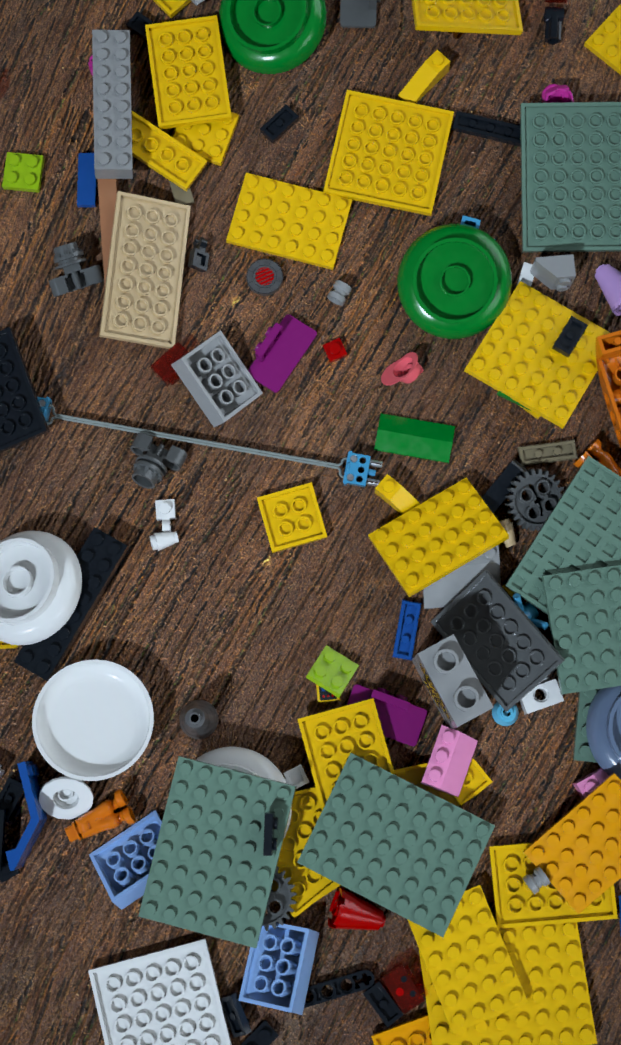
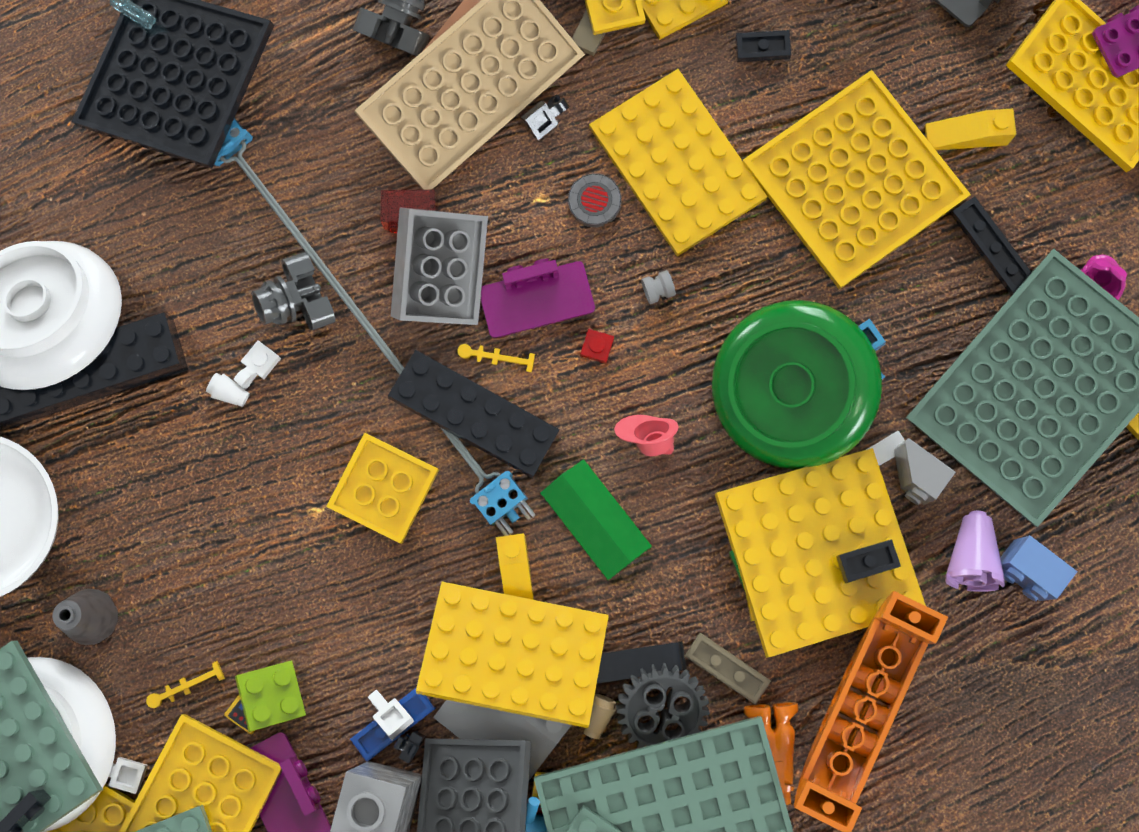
camera: 45 degrees right, 0 degrees up
(268, 412) = (465, 352): none -> yellow piece
(273, 730) = (155, 700): none -> yellow piece
(304, 438) = (473, 413): none -> black plate
(404, 624) = (390, 715): none -> white plate
(427, 631) = (409, 745): none -> black plate

